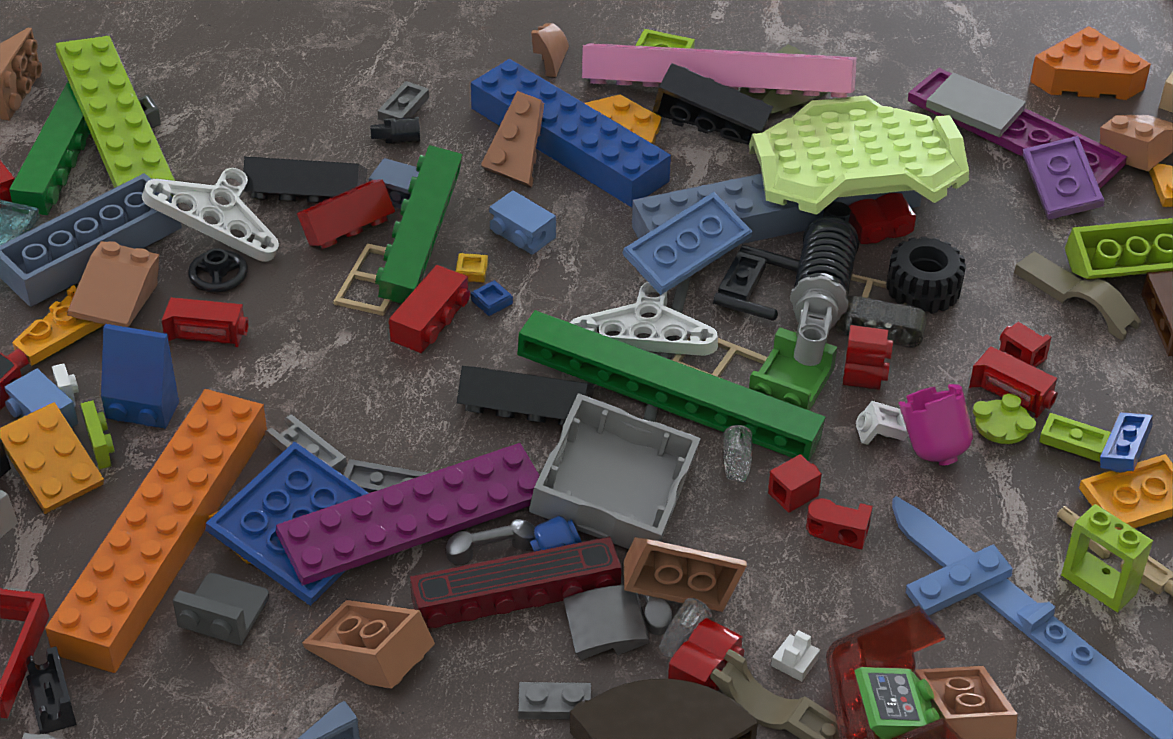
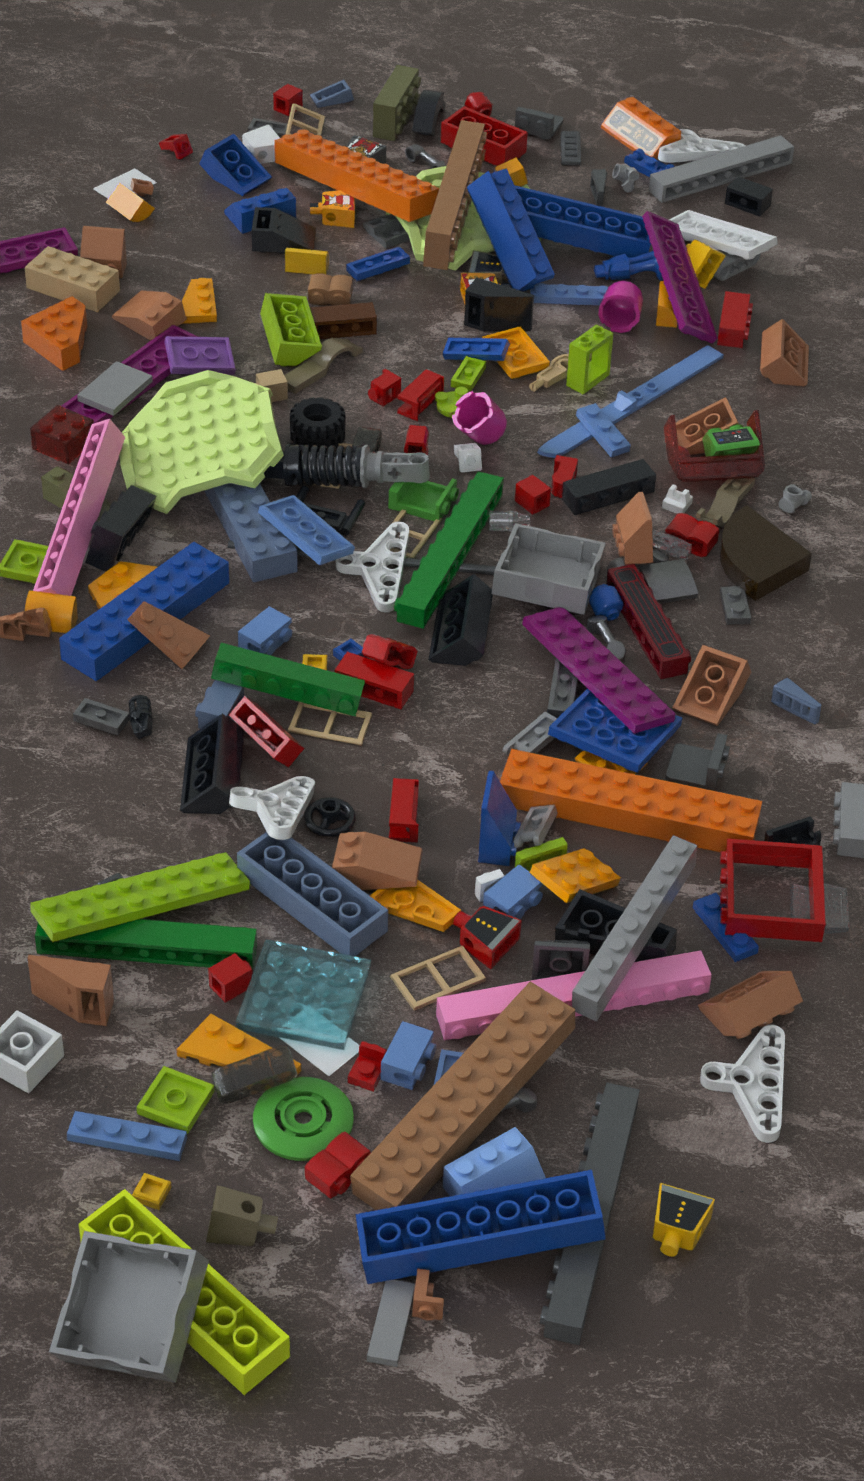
camera: 95 degrees left, 0 degrees up
(135, 426) = (535, 825): none -> light grey hinge
(461, 311) = (389, 651): none -> red brick
(569, 71) = (60, 608): none -> light orange brick
(816, 571) = (608, 486): none -> black brick
(888, 70) = (61, 434): none -> clear red brick
(1010, 240) = (276, 382): none -> tan brick

